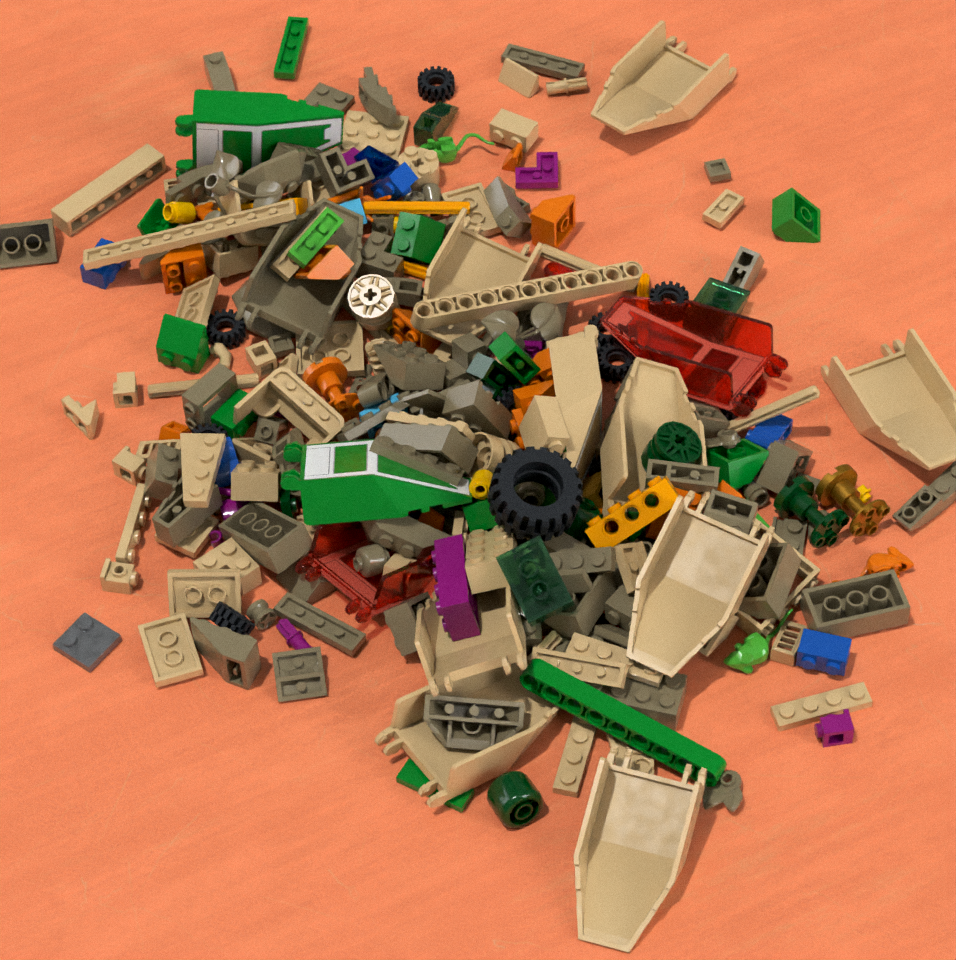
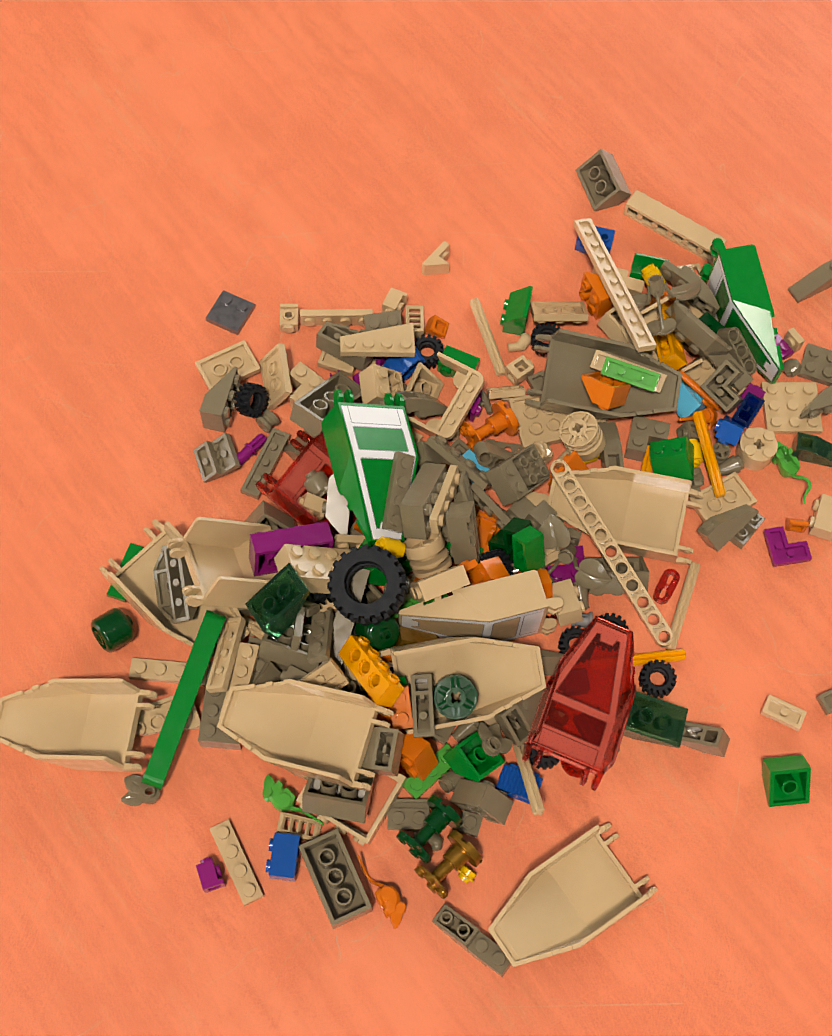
camera: 75 degrees right, 15 degrees up
(125, 390) = (469, 284): tan brick -> none
(217, 381) = (465, 338): dark tan window -> none
(268, 429) = (446, 389): dark tan bracket -> none
(553, 220) = (720, 566): orange slope -> none

